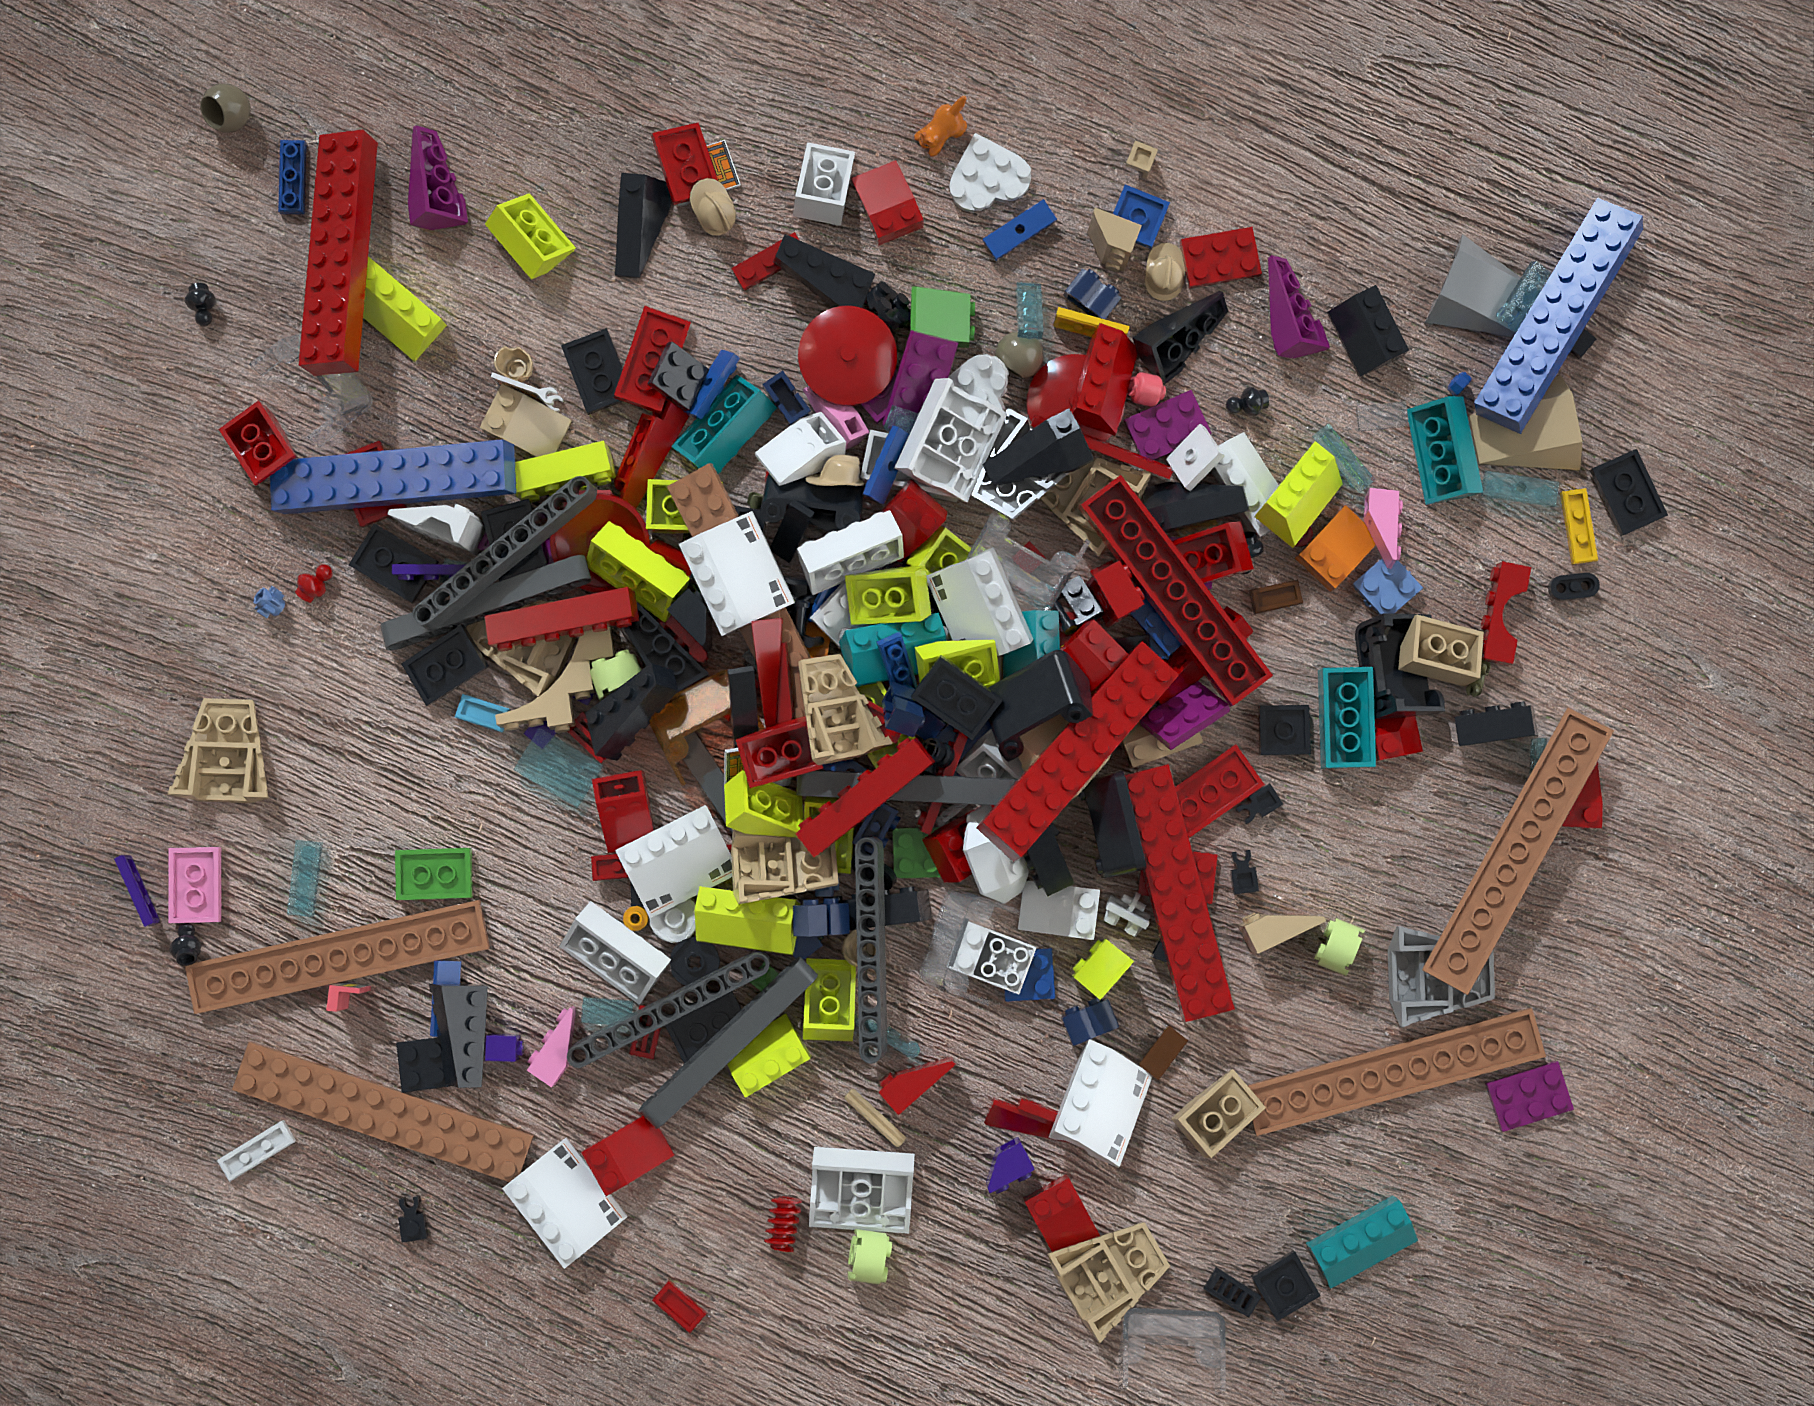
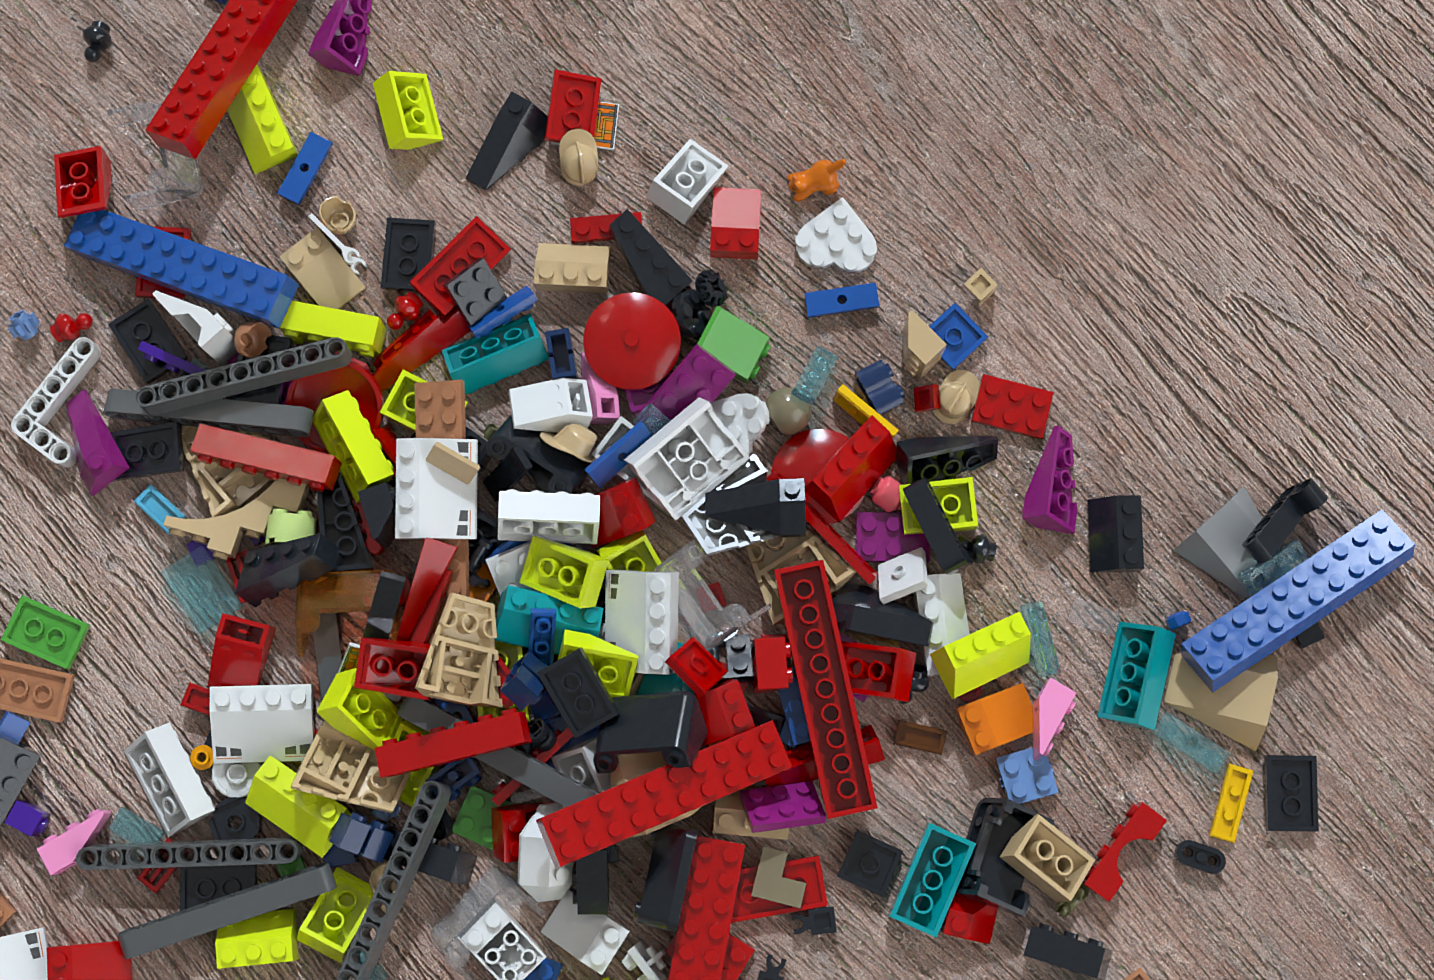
camera: 30 degrees right, 5 degrees down
(334, 658) = (54, 401): none -> white beam
(395, 686) = (94, 446): none -> magenta wedge
(460, 319) = (312, 156): none -> blue tile
(493, 515) = (251, 338): none -> nougat hair
(621, 422) = (406, 308): none -> red animal
(742, 542) = (452, 463): none -> tan slope
(757, 313) = (572, 268): none -> tan slope
(890, 277) = (705, 290): none -> black gear
(1051, 625) = (696, 666): none -> red plate
(1139, 285) = (926, 398): none -> red tile
(1198, 379) = (956, 499): none -> neon yellow slope
(1205, 788) = (770, 883): none -> dark tan tile
(1206, 397) = (936, 527): none -> black beam
(1512, 246) = (1283, 518): none -> black beam

